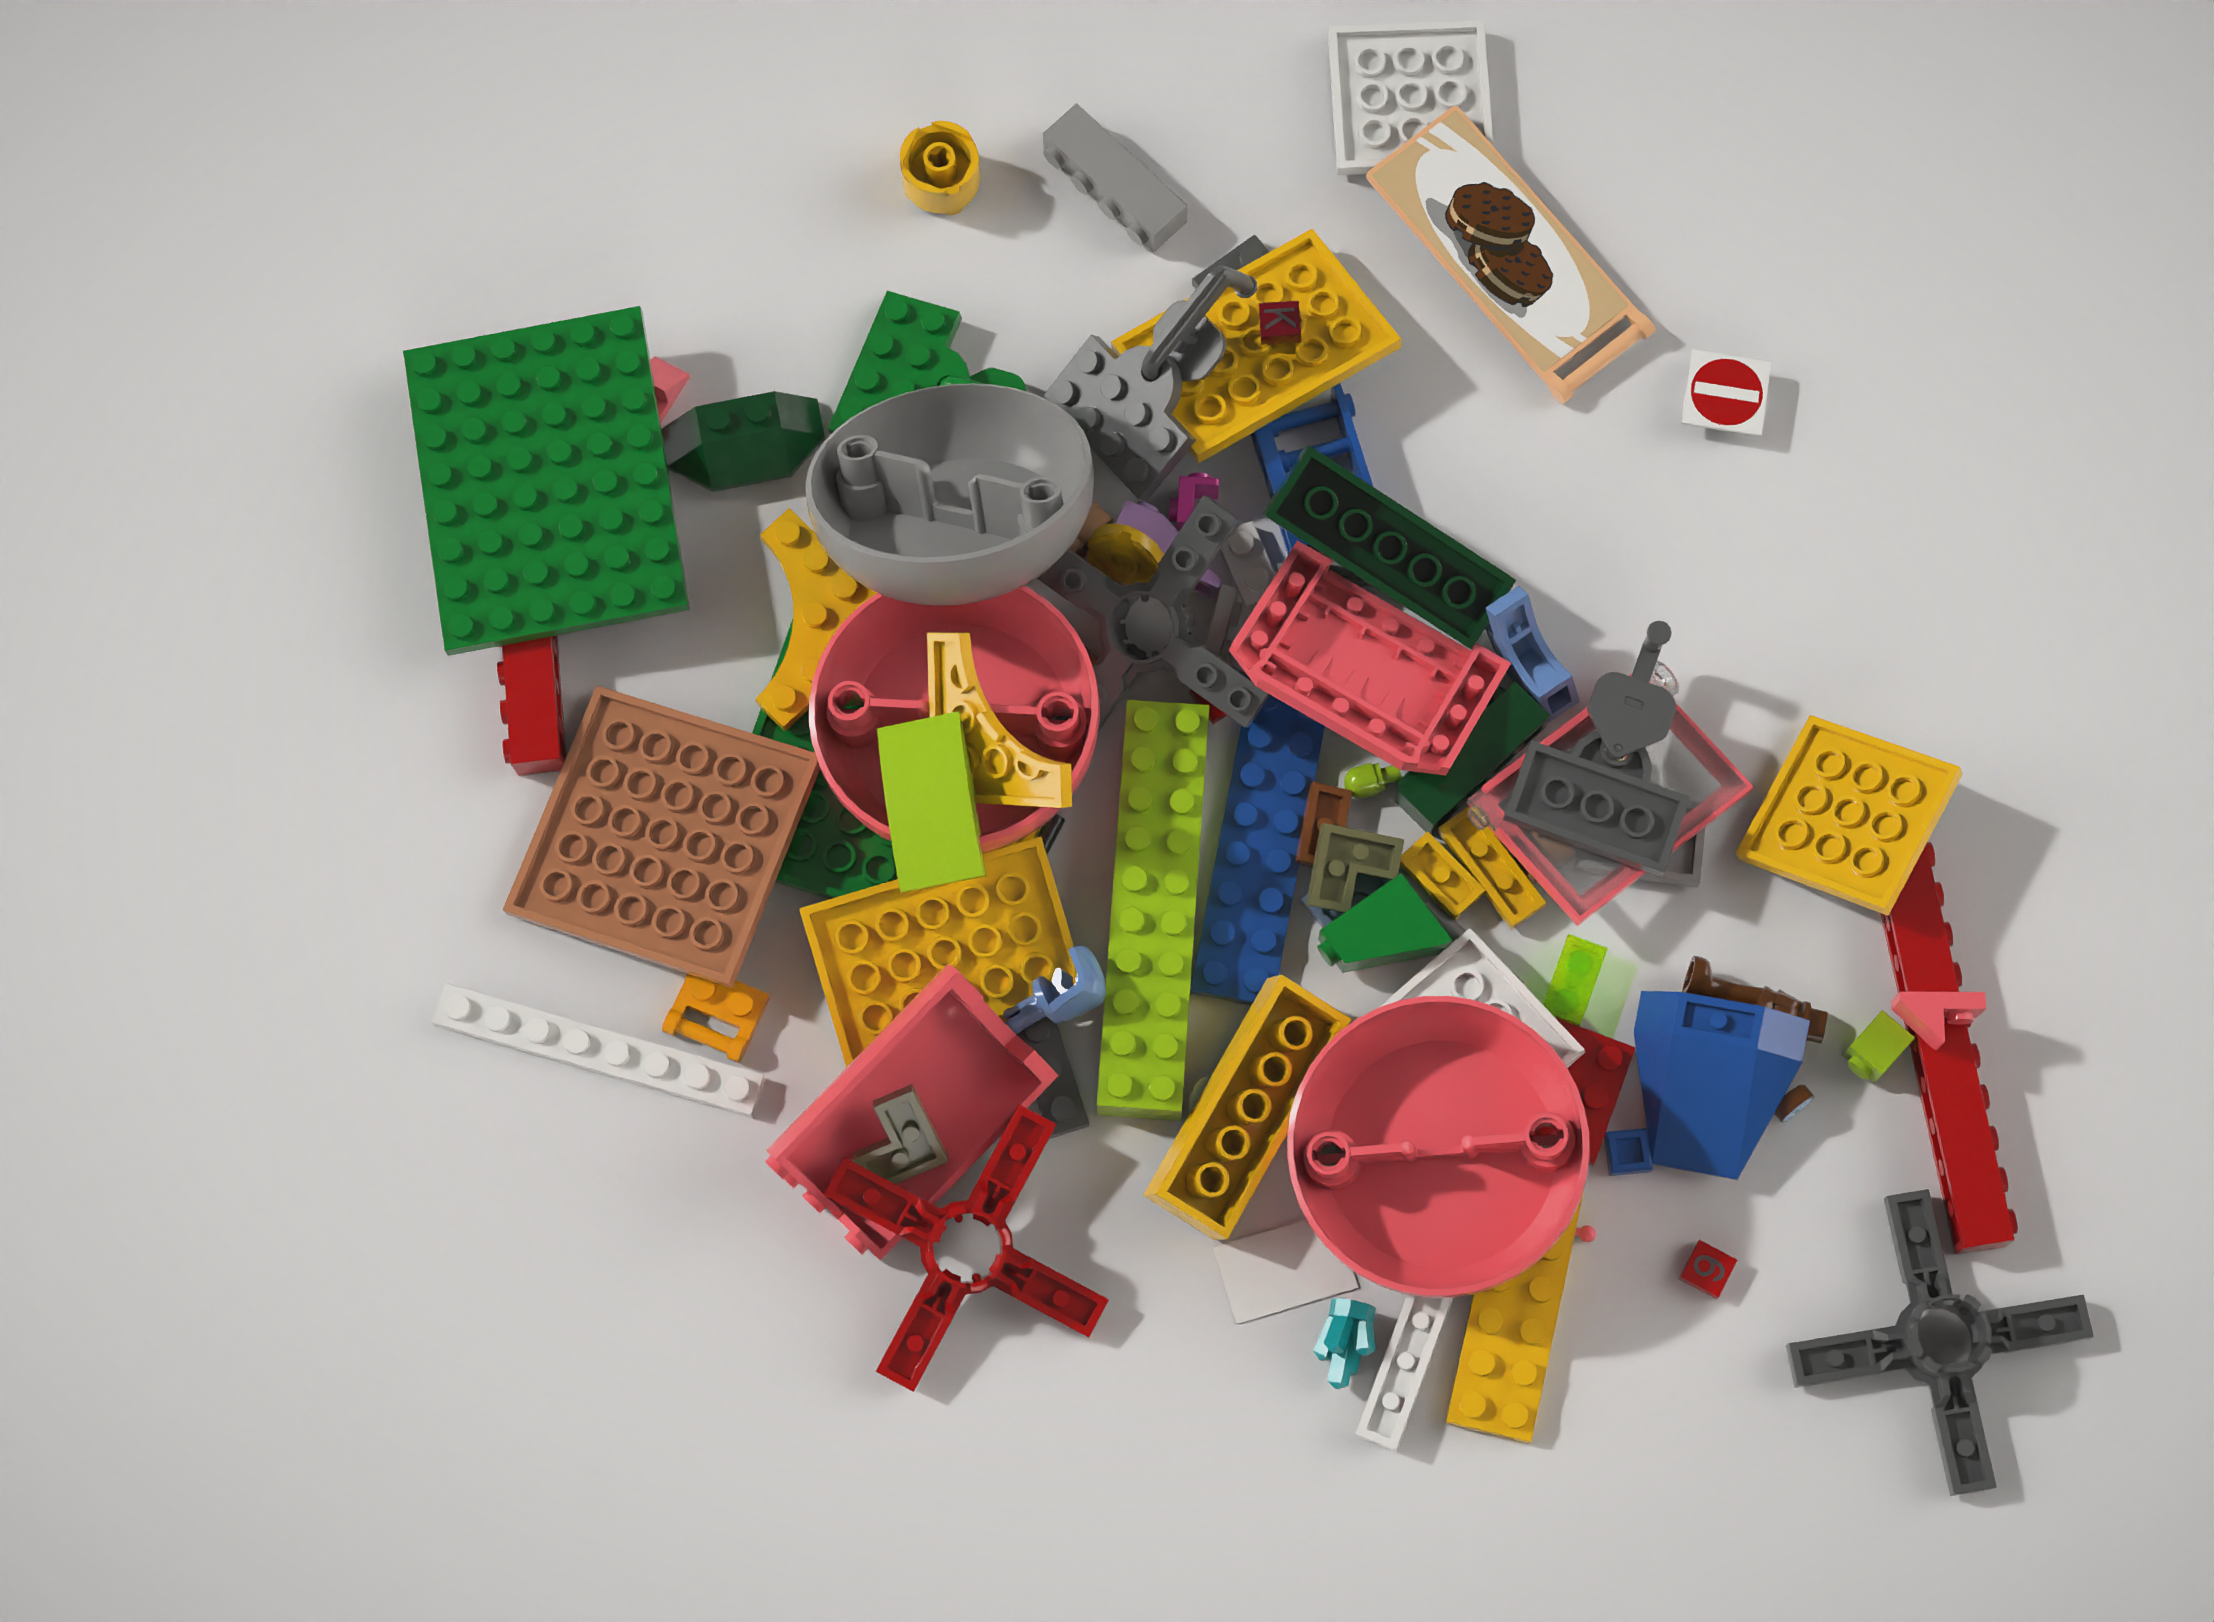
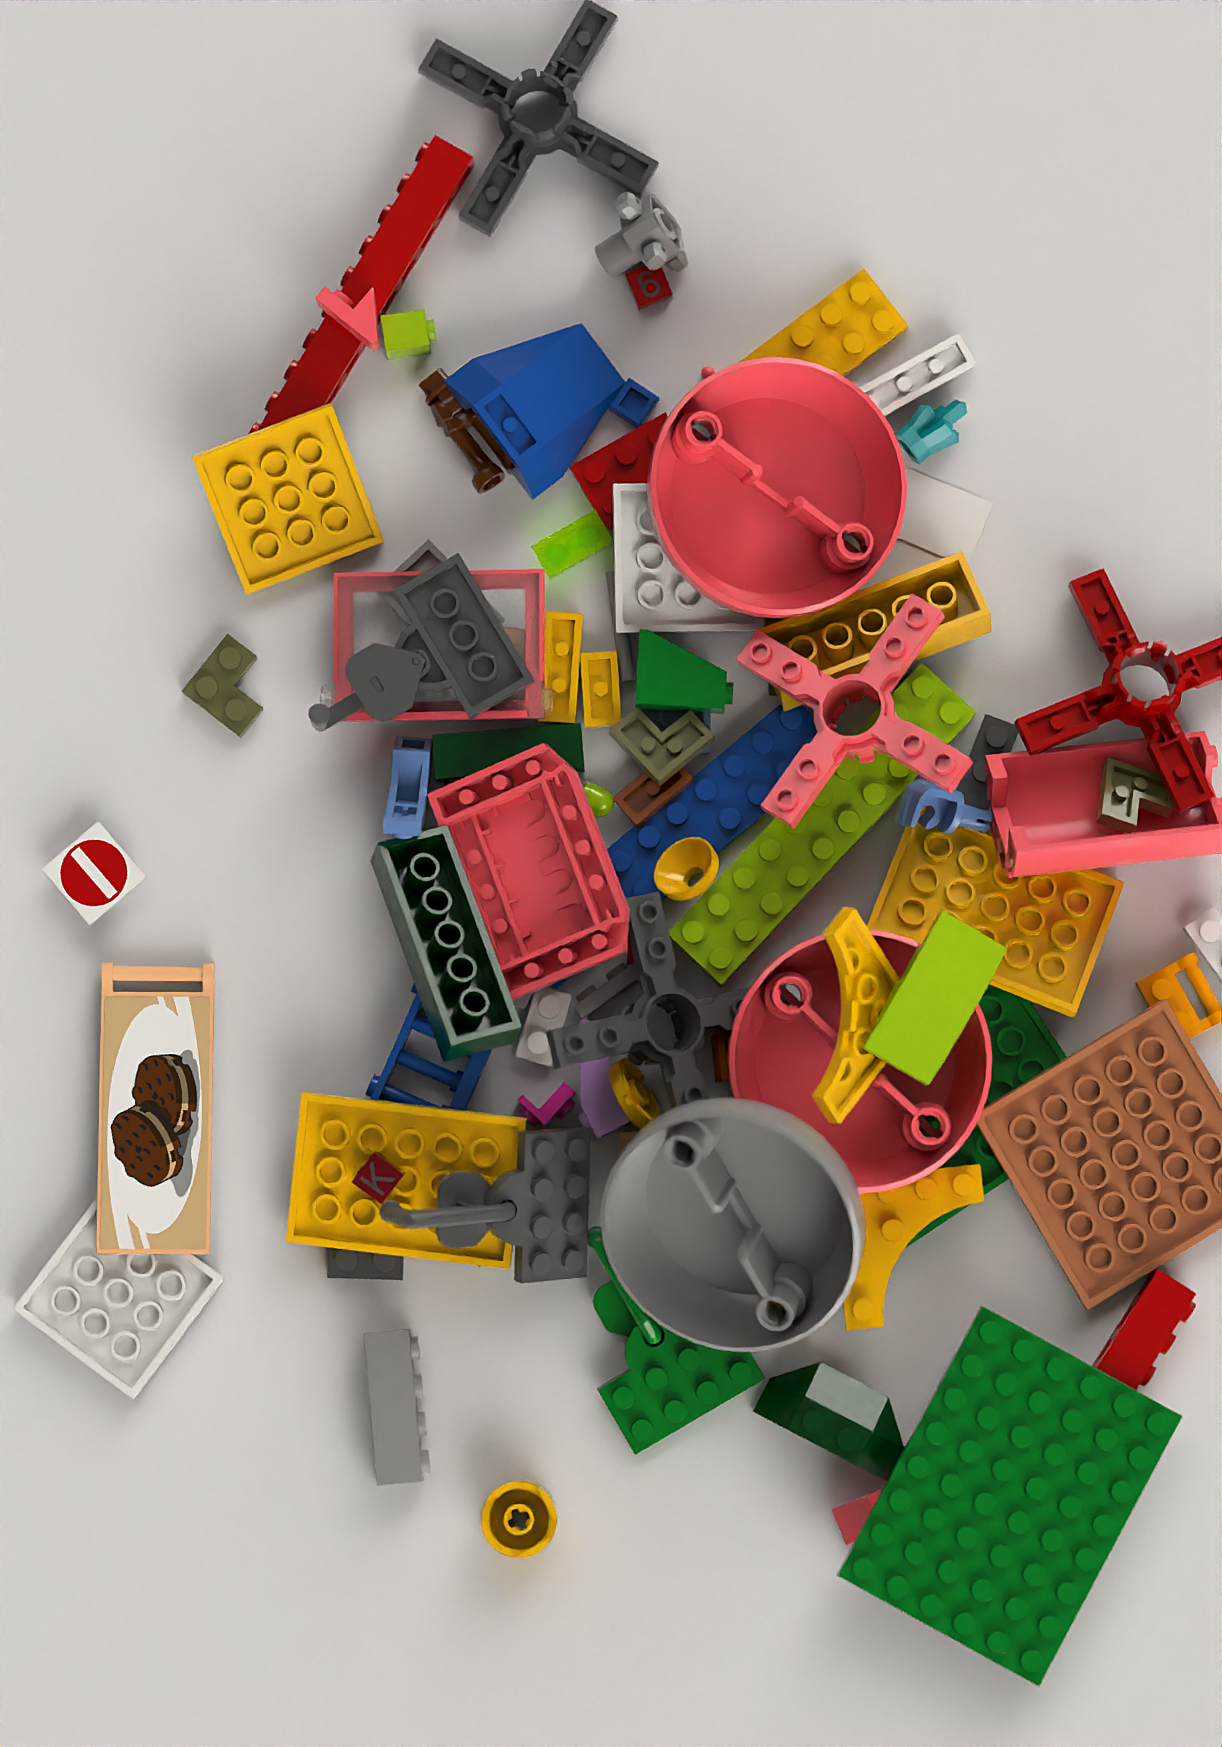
camera: 140 degrees left, 10 degrees up
(1239, 998) = (827, 697): none -> coral piece
(1245, 765) = (682, 862): none -> yellow piece
(1748, 1302) = (646, 235): none -> light grey piece
(1762, 620) = (216, 689): none -> olive plate
(1793, 1103) = (493, 342): reddish brown tile -> none

